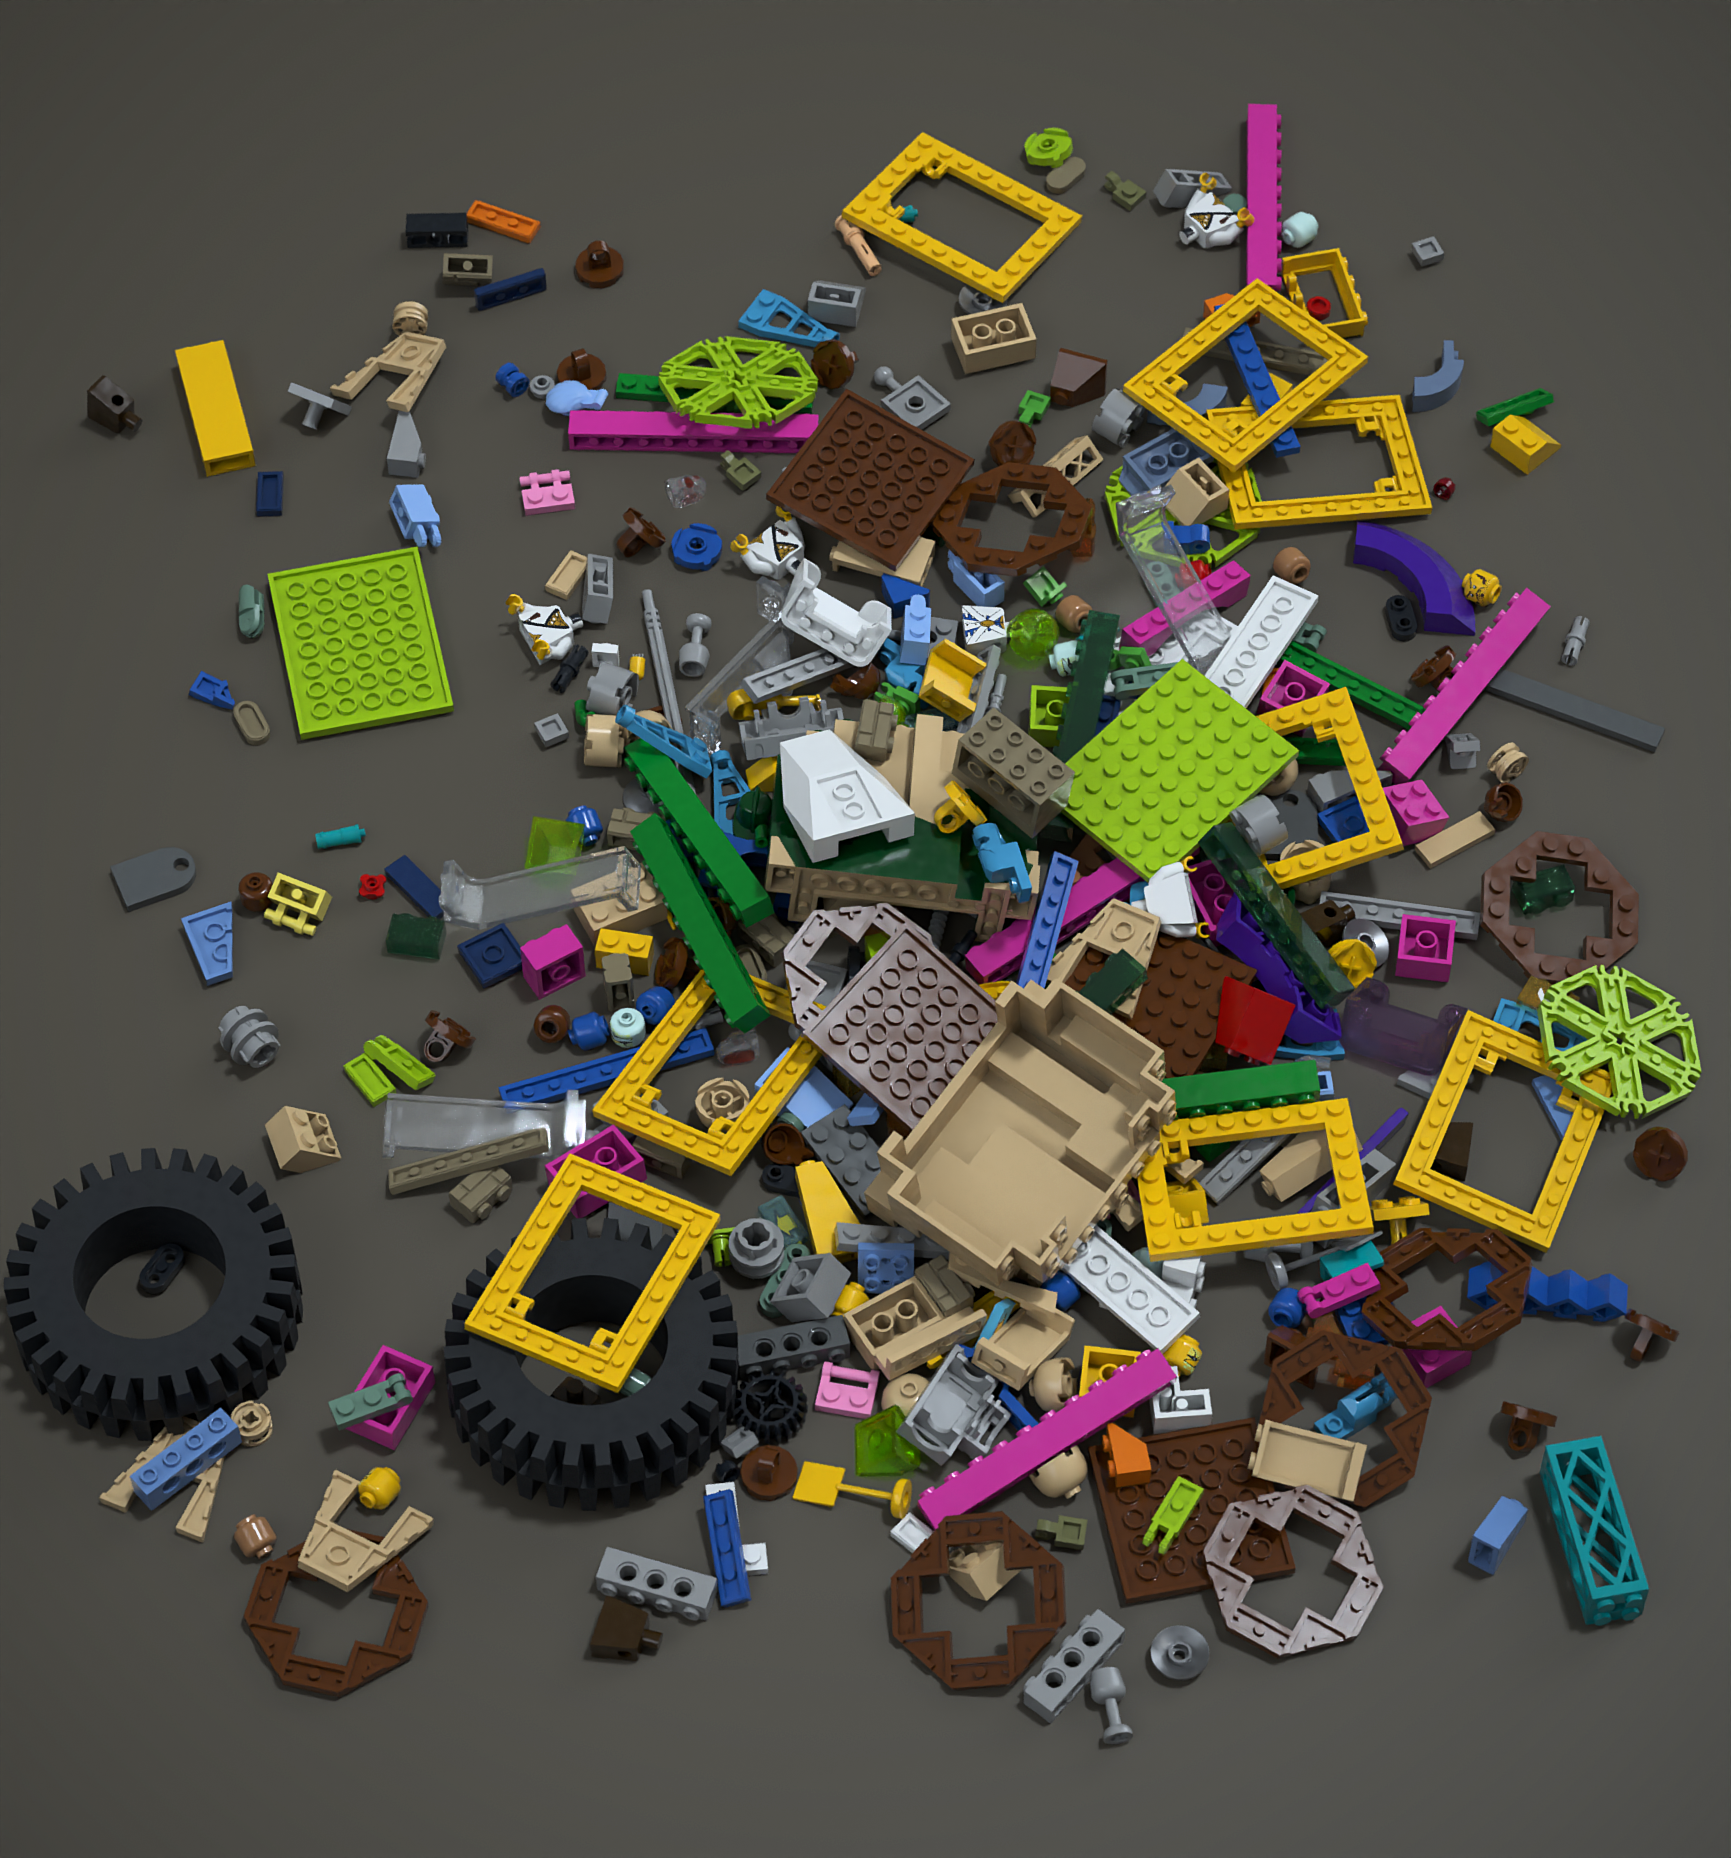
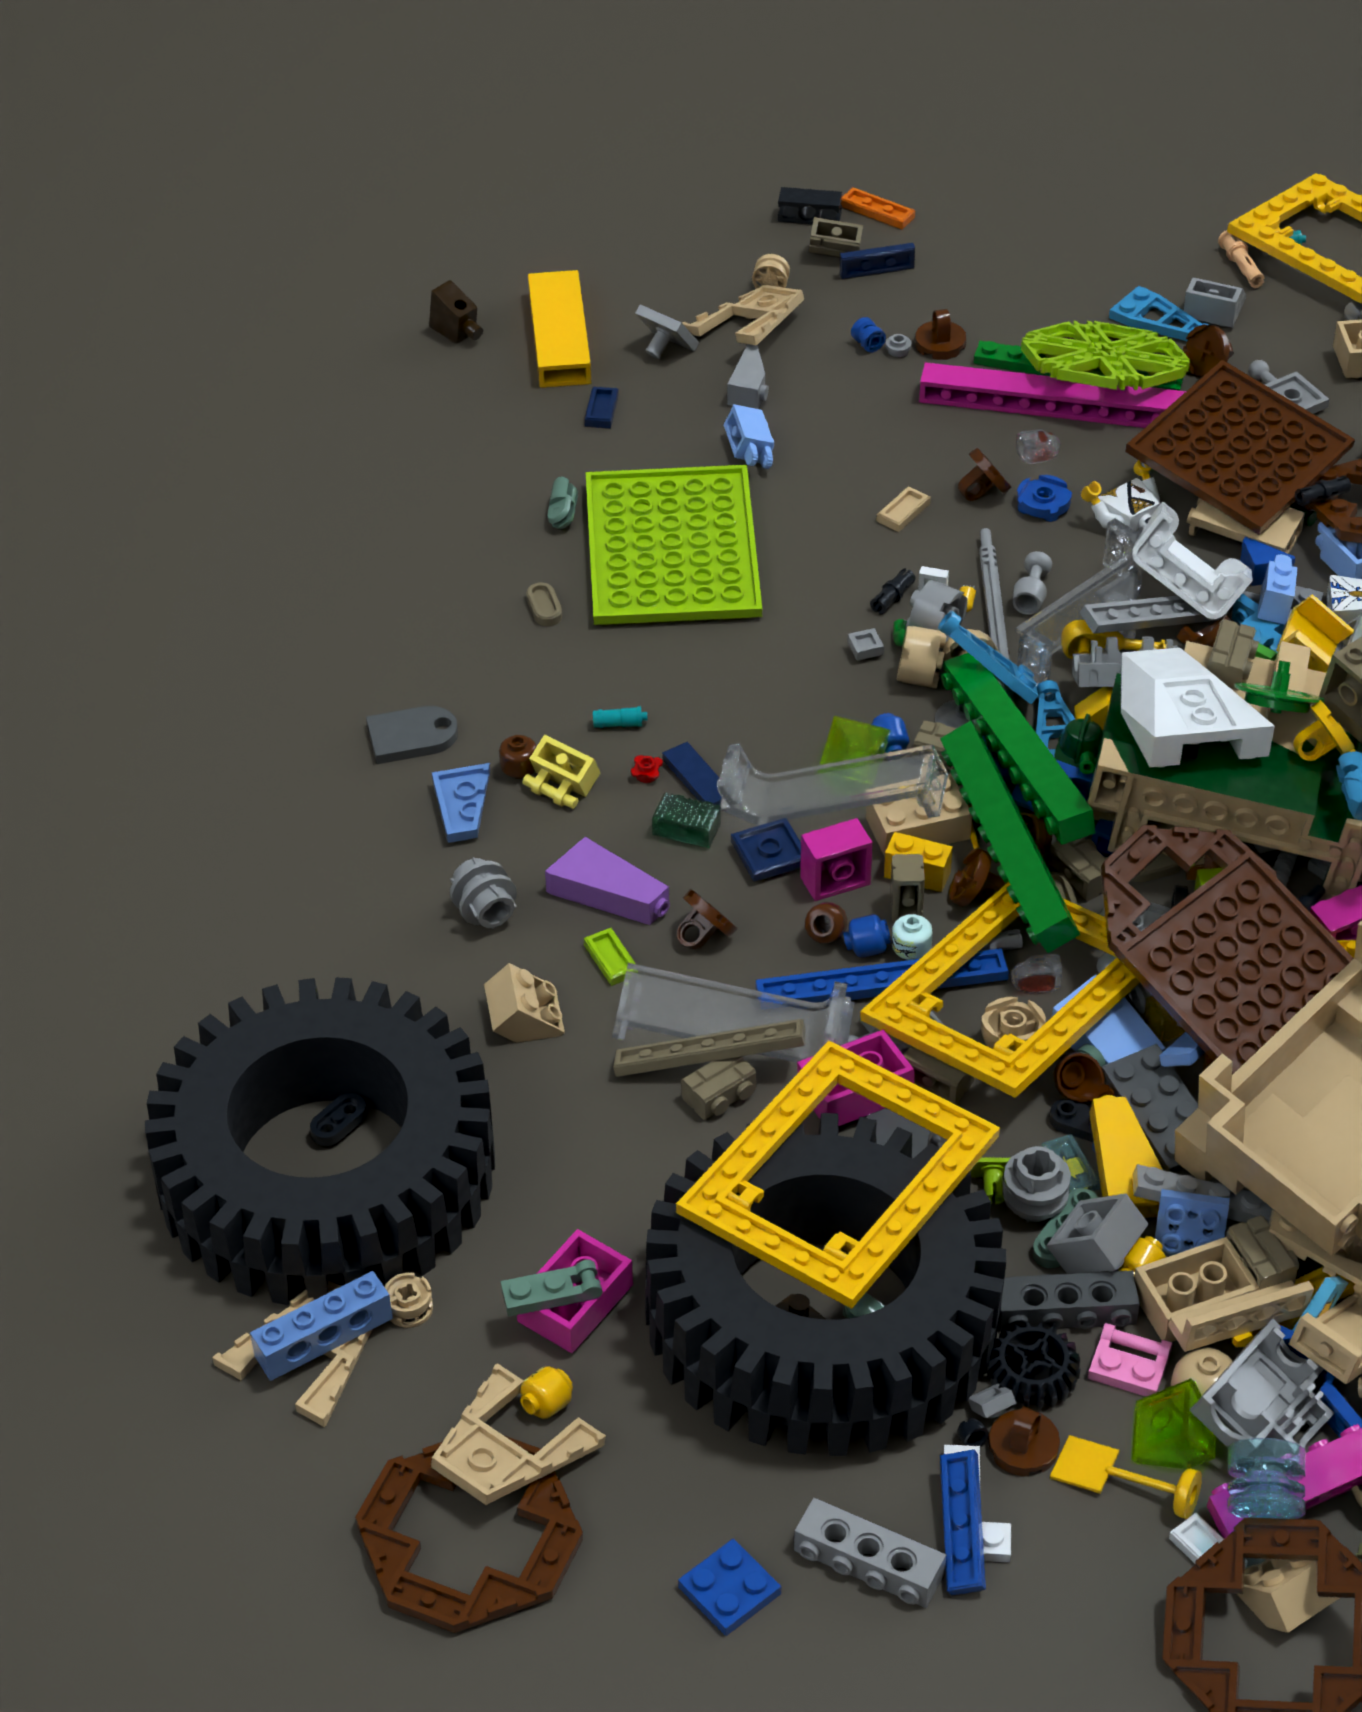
camera: 10 degrees right, 10 degrees down
(212, 691) = (507, 571): blue slope -> none
(255, 1537) = (387, 1427): medium nougat head -> none
(355, 1009) = (607, 883): none -> medium lavender slope
(399, 1062) = (647, 941): lime hinge -> none
(545, 628) = (871, 553): white torso -> none
(548, 498) = (890, 440): bright pink plate -> none
(550, 1627) = (729, 1587): none -> blue plate
(575, 397) = (930, 351): light blue animal -> none
(597, 589) = (932, 523): light grey slope -> none
(599, 265) = (971, 251): reddish brown tile -> none
(622, 1632) = (819, 1605): dark brown torso -> none
(654, 1004) = (945, 916): blue head -> none
(740, 472) = (1097, 437): olive plate -> none
(916, 775) = (1278, 696): none -> green piece
(948, 521) = (1322, 491): none -> black pin
(959, 1488) = (1266, 1479): none -> clear light blue wheel

